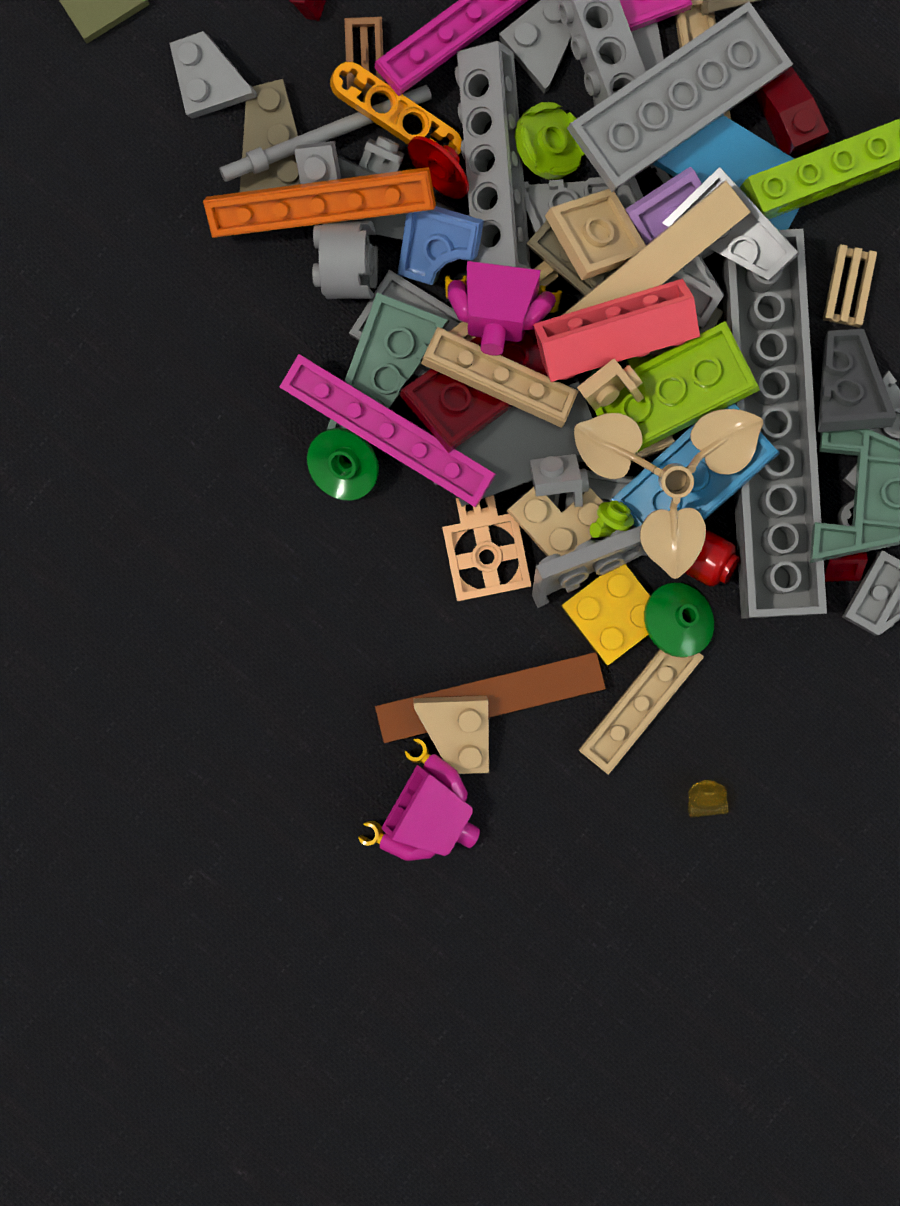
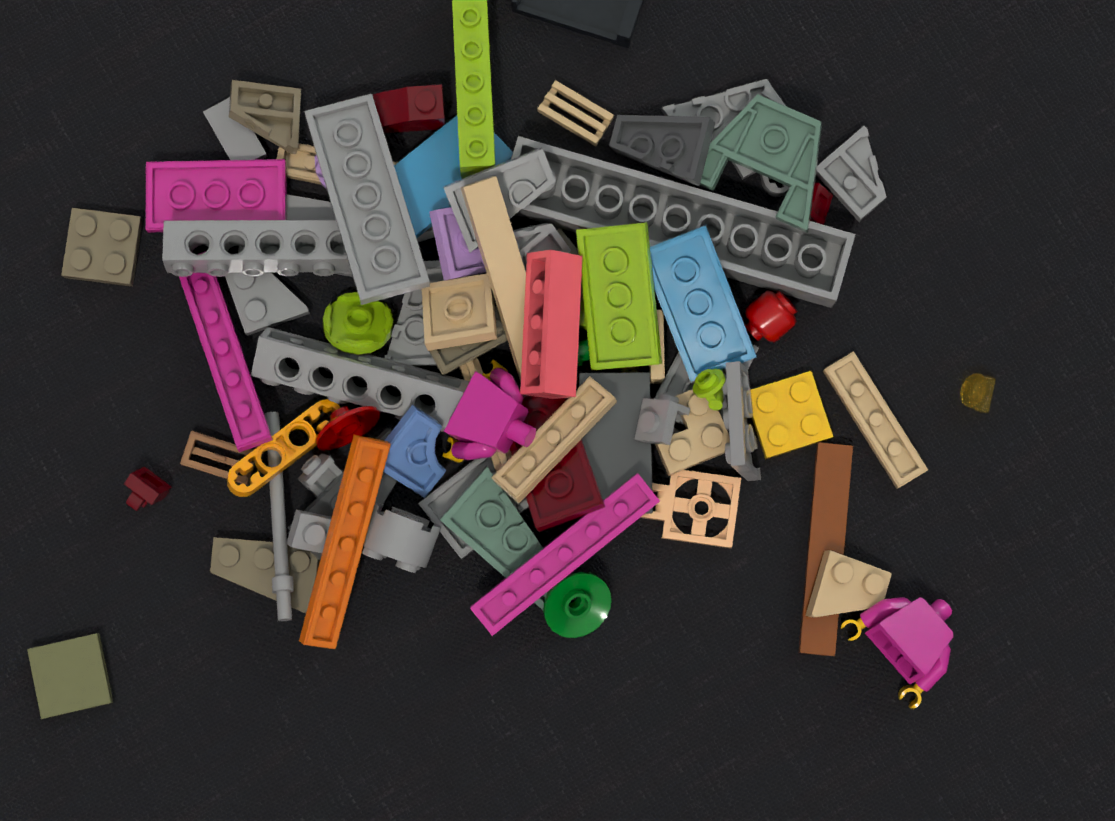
camera: 75 degrees left, 5 degrees down
(206, 76) = (186, 604): light grey wing -> none
(607, 383) = (594, 351): tan bracket -> none
(666, 624) = (810, 372): green dish -> none
(675, 536) = (745, 341): tan plant -> none

